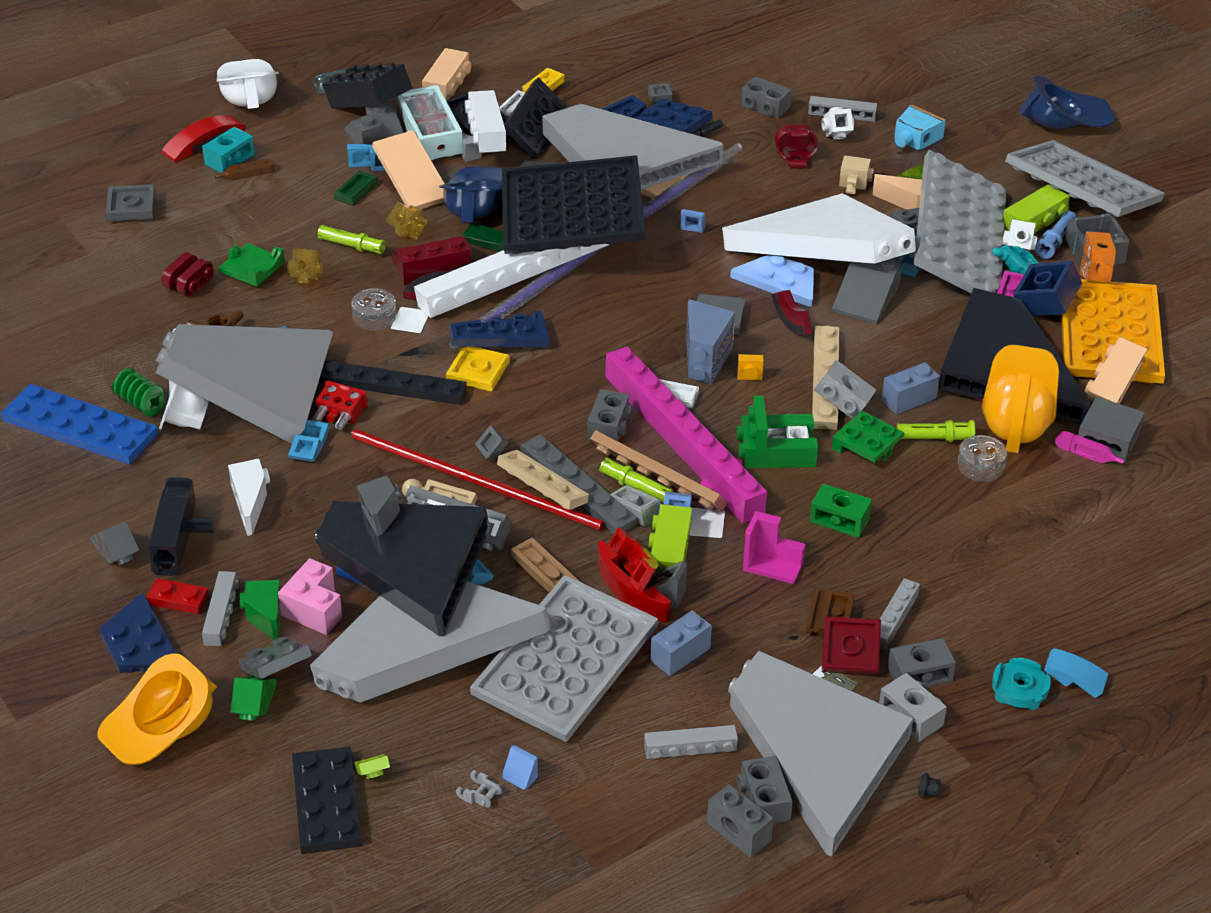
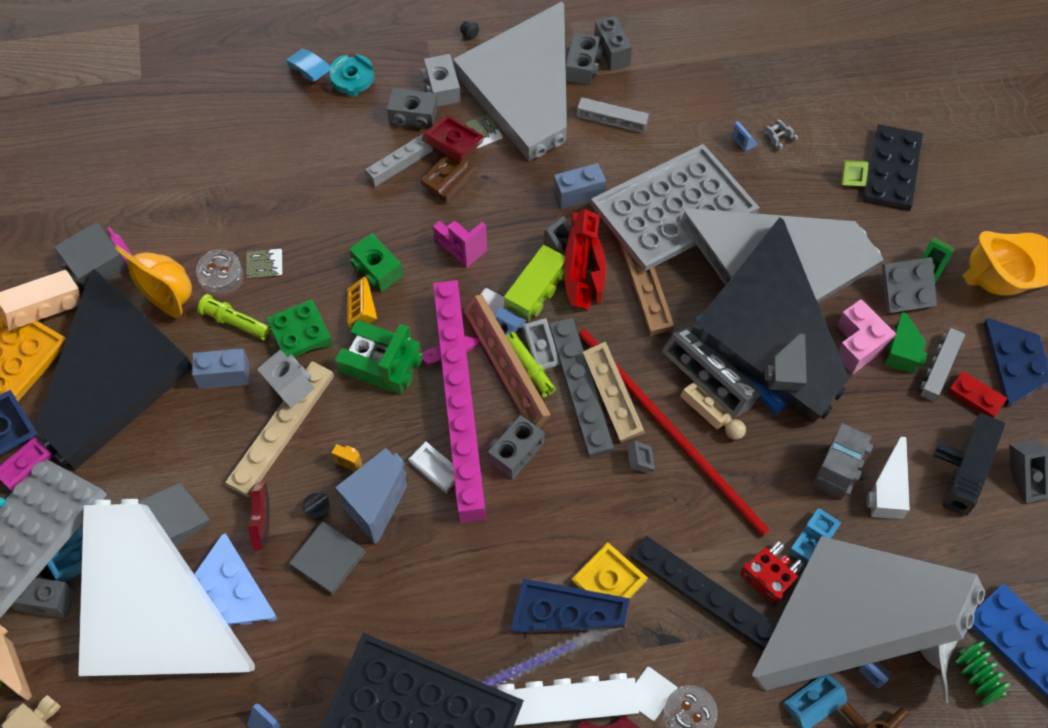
camera: 155 degrees left, 20 degrees up
(301, 480) = (843, 461): none -> flat silver container
(753, 337) = (316, 505): none -> black plate
(825, 469) = (365, 311): none -> light orange slope
(952, 489) = (264, 263): none -> sticker

